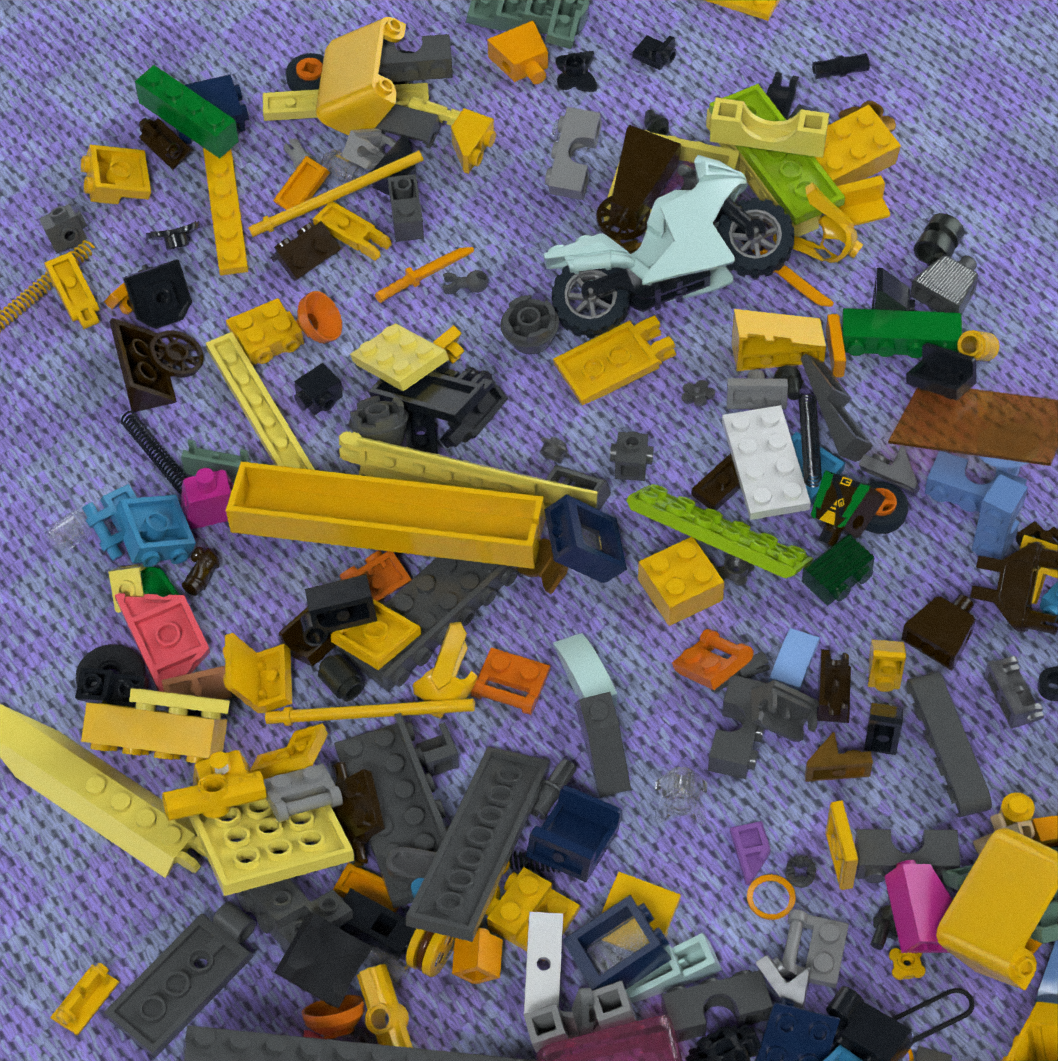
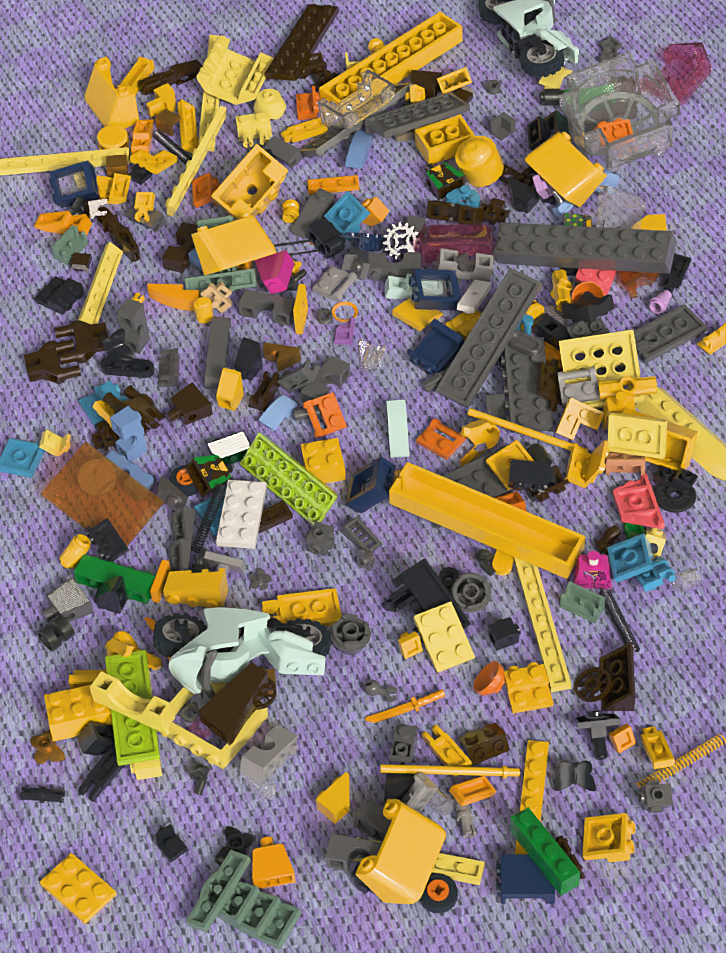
camera: 160 degrees left, 5 degrees down
(409, 464) = (429, 543): light yellow hinge -> none
(430, 107) = (355, 829): light yellow axle -> none
(603, 743) = (403, 385): dark grey slope -> none

